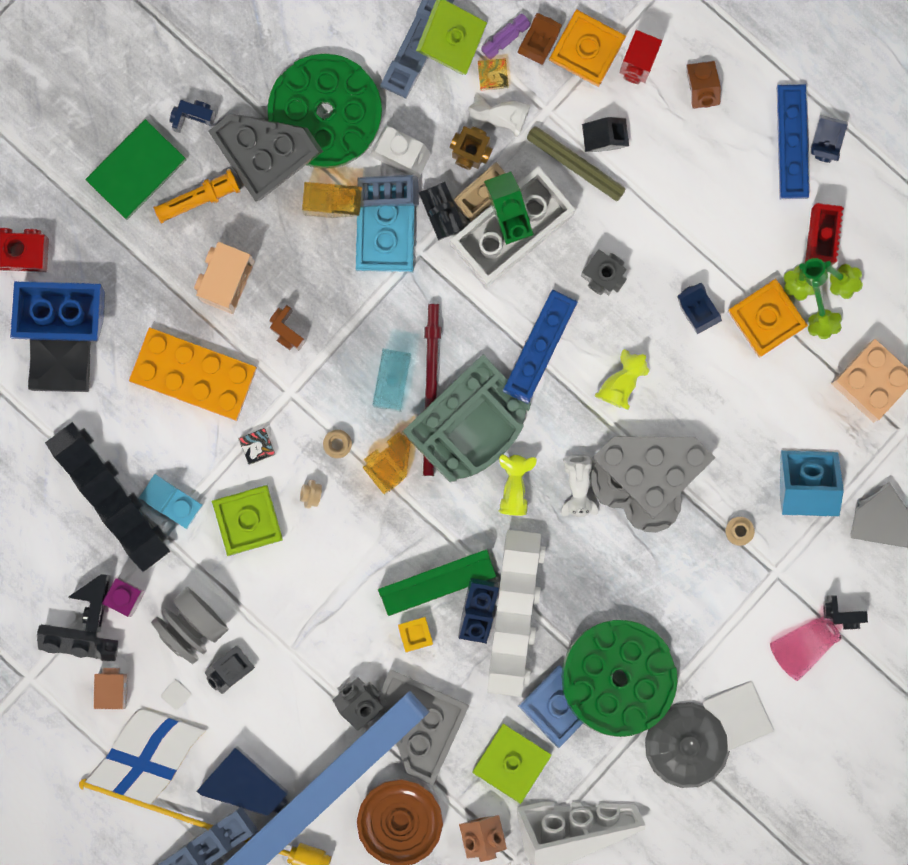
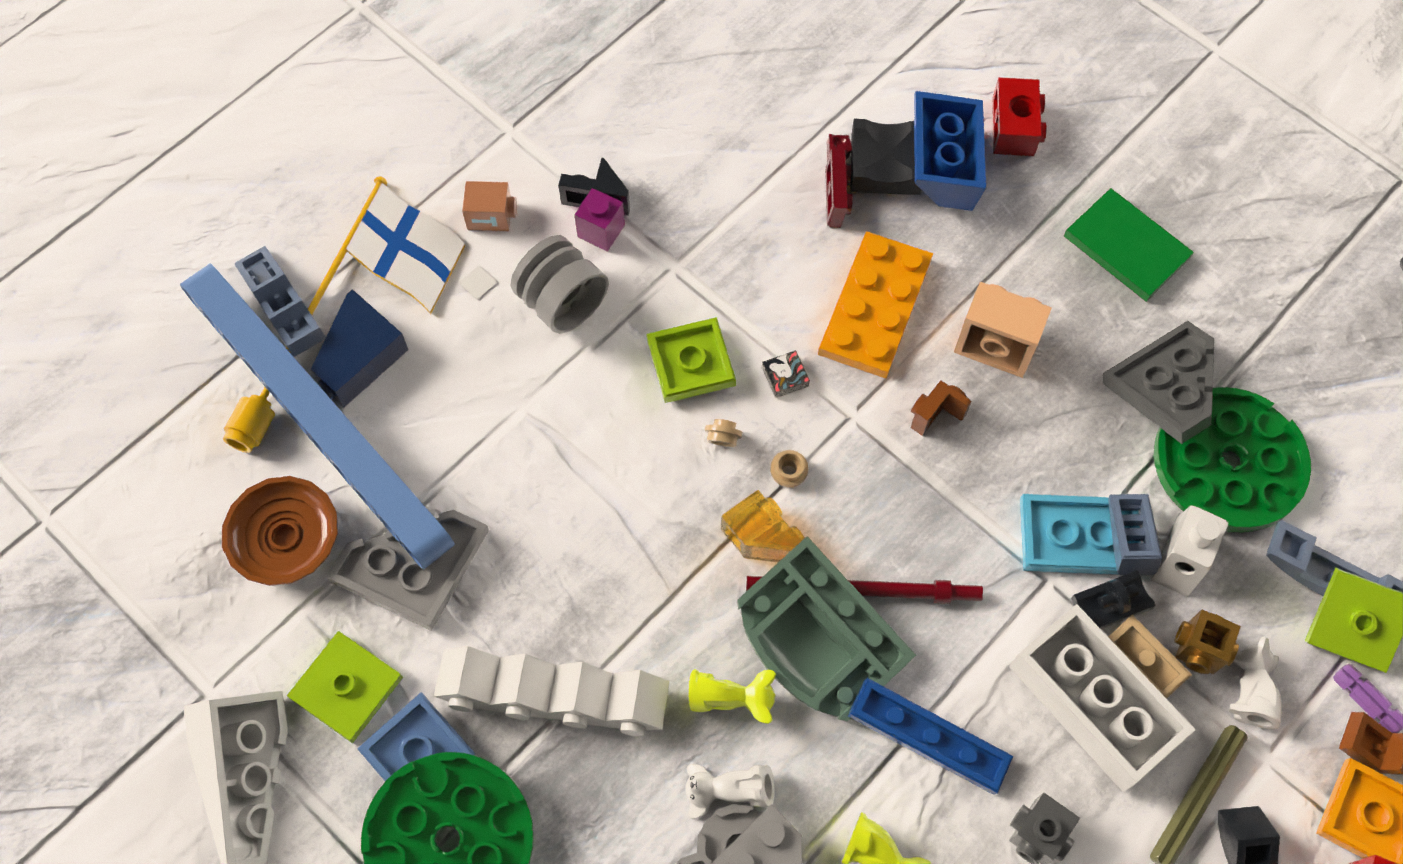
camera: 90 degrees right, 20 degrees down
(76, 643) = (547, 171): black hinge -> none
(78, 403) = (837, 178): none -> dark red hinge
(108, 496) = (715, 212): black brick -> none
(170, 501) = (716, 277): medium azure slope -> none
(198, 112) = (1209, 294): dark blue bracket -> none
(210, 191) = (1109, 321): light orange pin -> none
(228, 670) = (503, 335): black bracket -> none
(331, 200) = (1114, 456): clear yellow slope -> none
(358, 703) = (444, 482): dark grey brick -> none
(392, 380) = (875, 534): clear light blue brick -> none
(415, 634) = (531, 560): yellow plate -> none
(436, 582) = (601, 591): green fence -> none
(478, 610) = (559, 642): dark blue slope -> none
(483, 837) = (245, 640): nougat brick -> none
(493, 74) = (1312, 681): clear yellow tile -> none
(509, 207) = (1132, 680): green slope -> none

